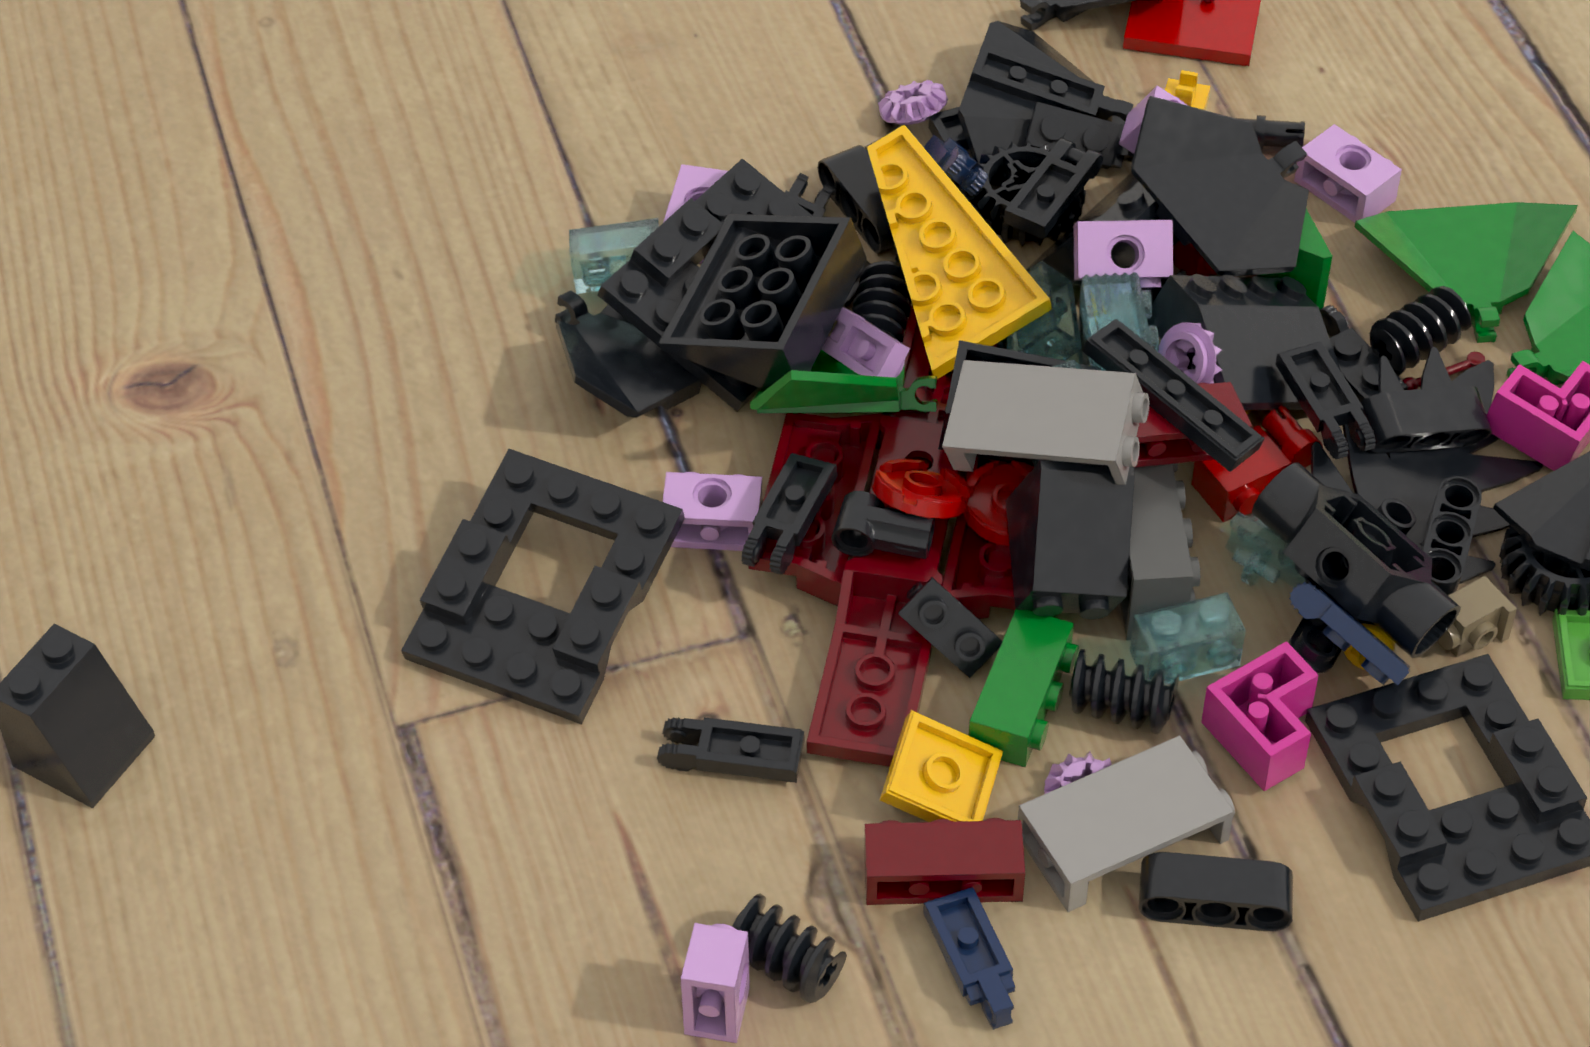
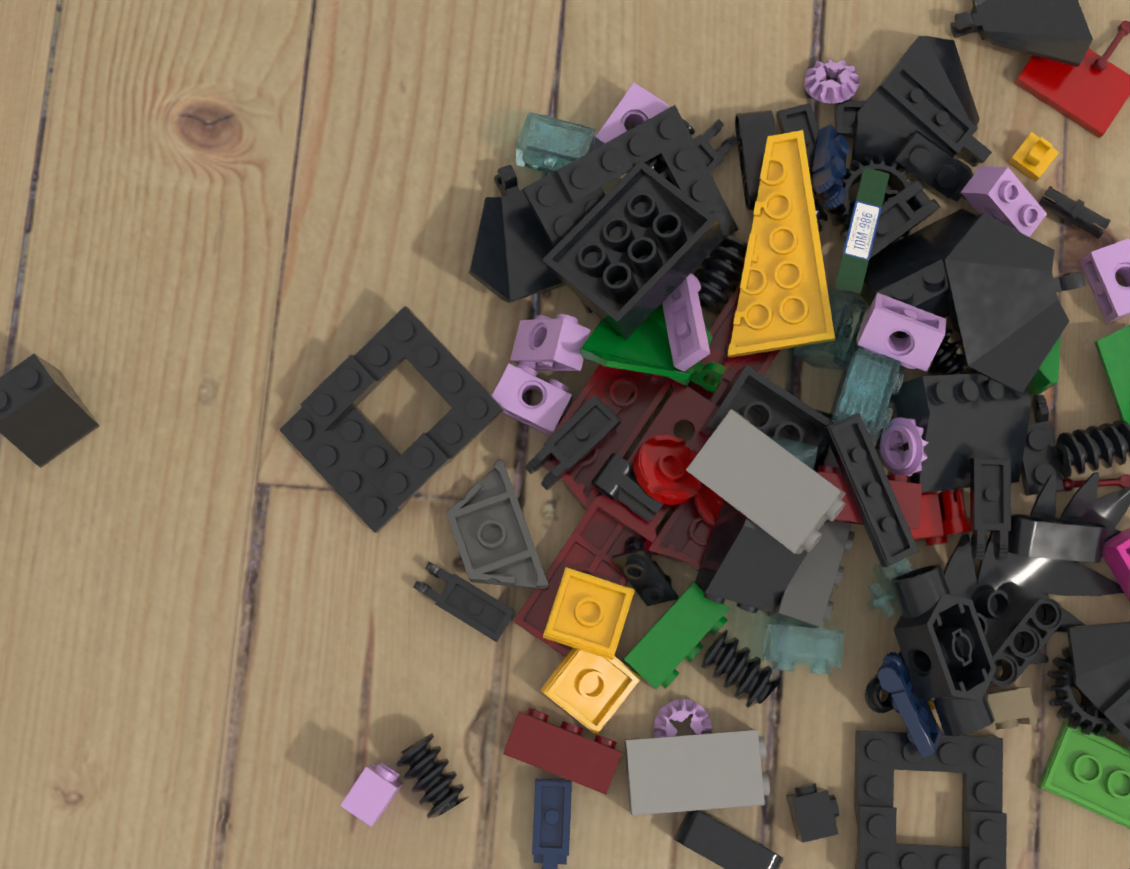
camera: 15 degrees right, 30 degrees up
(710, 431) = (550, 343): none -> lavender brick
(739, 661) = (495, 535): none -> dark grey wing
(900, 686) = (588, 613): none -> yellow tile
(1025, 200) = (862, 231): none -> sticker
(1258, 714) = (814, 732): dark pink brick -> none
(1300, 813) = (813, 812): none -> black brick

